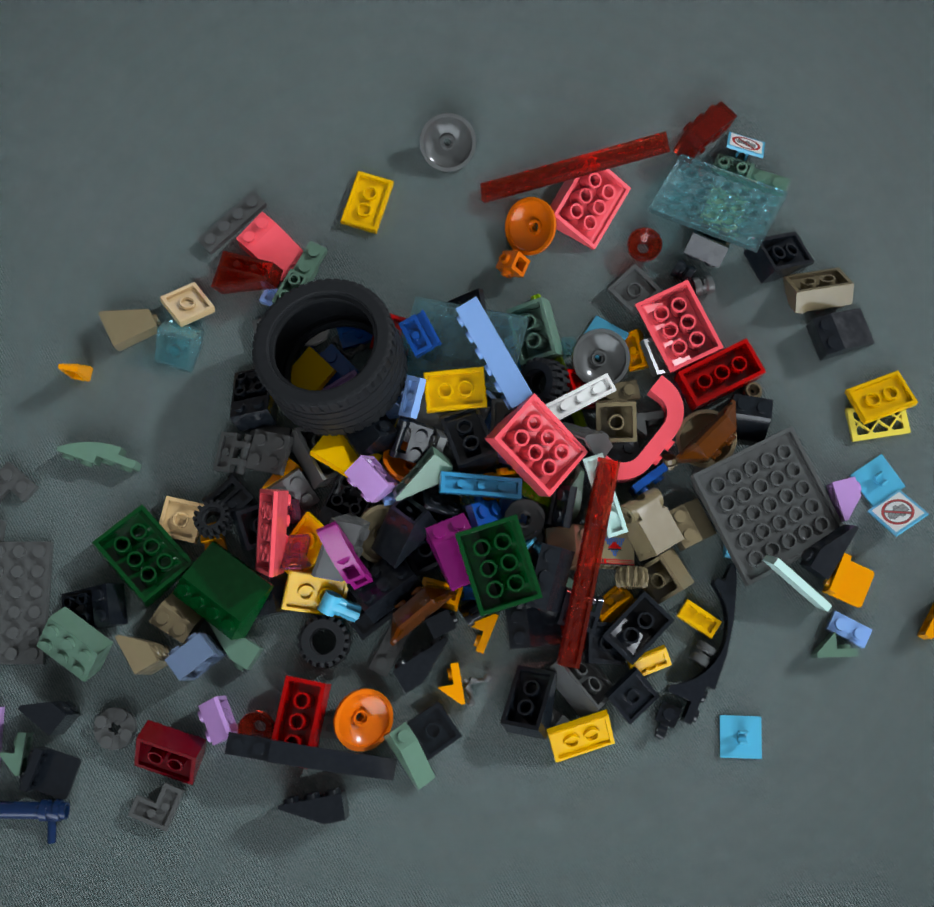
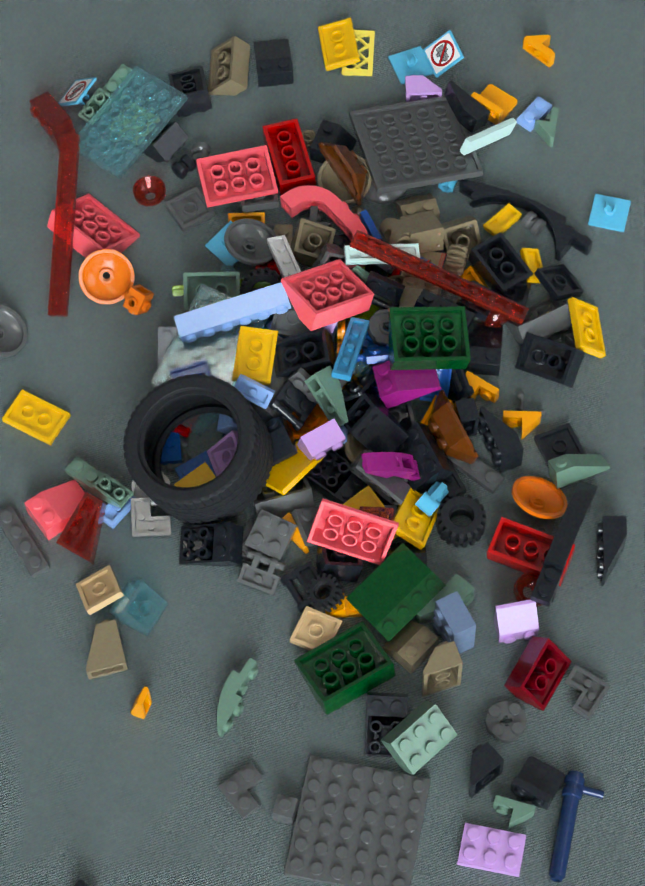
camera: 75 degrees left, 15 degrees down
(667, 716) = (582, 262): black plate -> none

